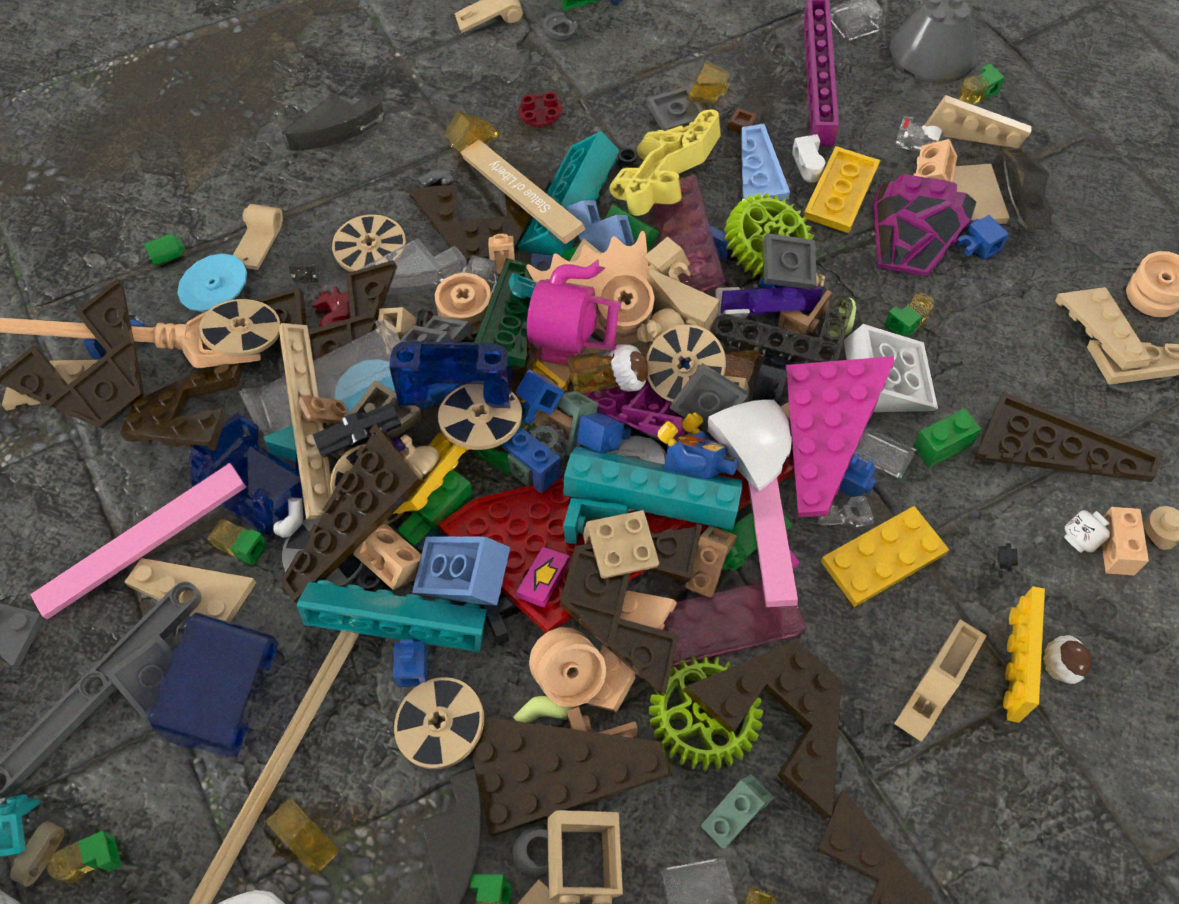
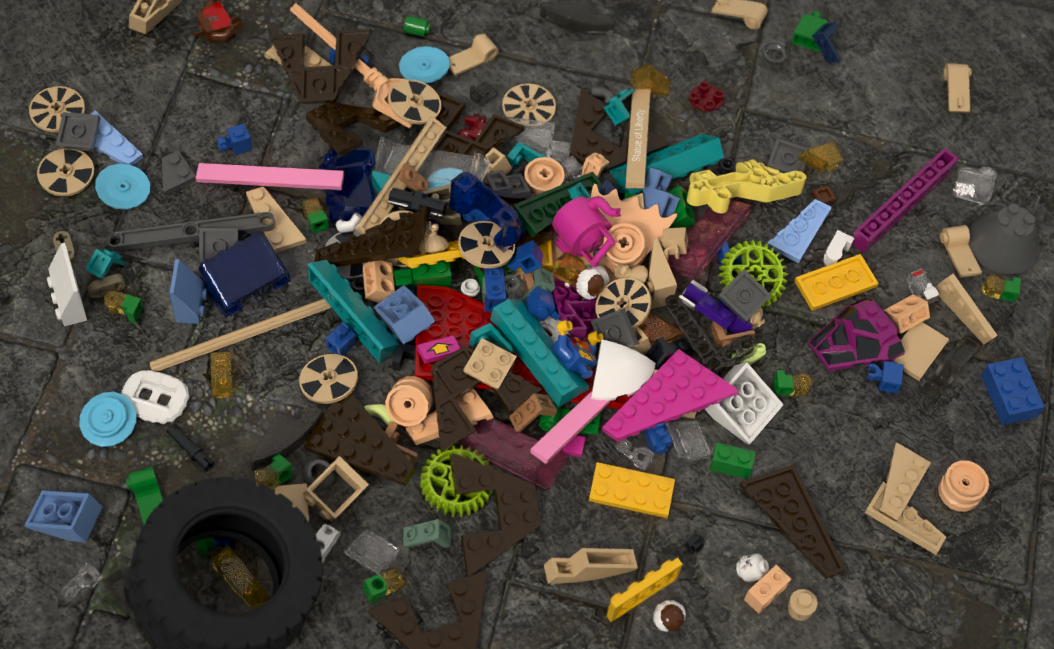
camera: 35 degrees right, 0 degrees up
(57, 527) = (237, 139): none -> blue brick
(164, 772) = (187, 294): none -> medium blue slope
(417, 292) = (521, 152): none -> teal bracket
(465, 179) = (616, 109): none -> teal bracket
(497, 480) = (470, 287): none -> white plate
(896, 75) = (956, 243): none -> tan door
(1094, 166) = (1012, 391): none -> blue brick

